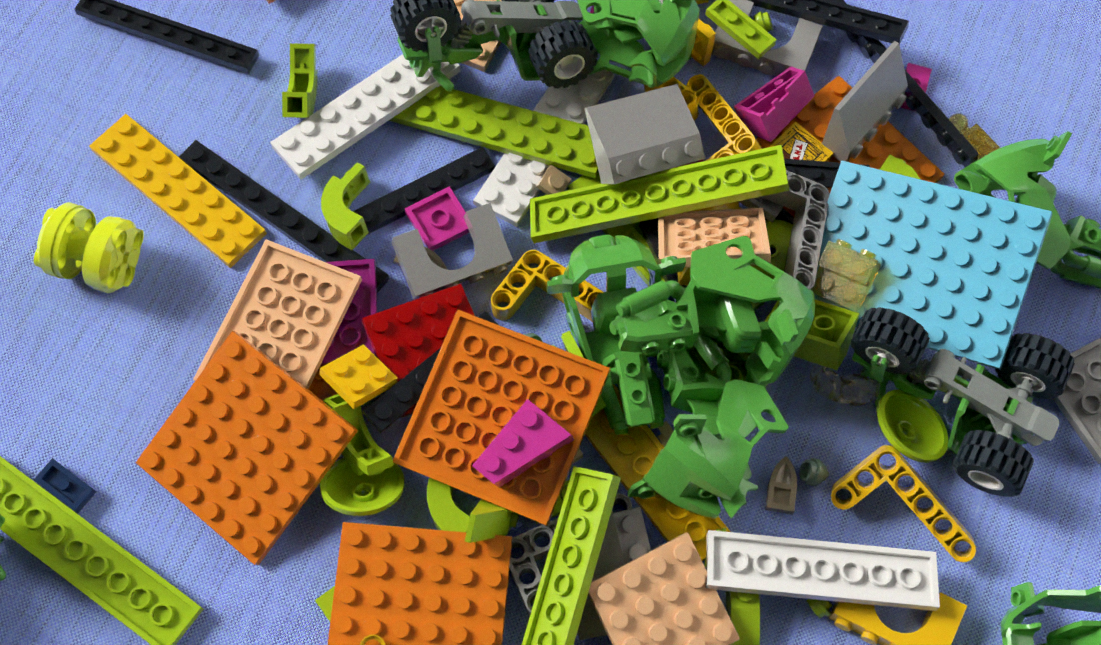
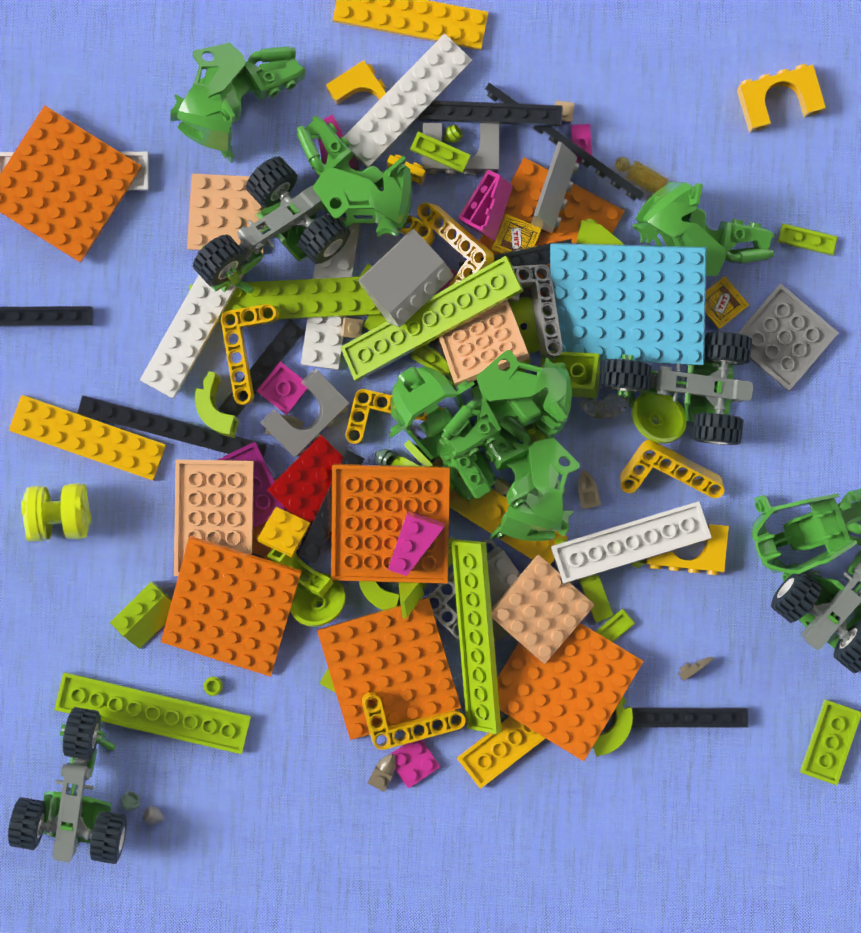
camera: 20 degrees left, 20 degrees up
(65, 485) = (122, 675): dark blue plate -> none
(129, 418) = (143, 615): none -> lime slope
(173, 547) = (213, 686): none -> lime plate
(302, 88) = (139, 324): lime arch -> none
(406, 147) = (240, 347): none -> yellow beam
(813, 472) = (604, 472): sand green plate -> none
(845, 275) = (580, 330): clear yellow plate -> none
(908, 47) = (568, 109): none -> tan plate
(1044, 318) = (723, 302): none -> tile

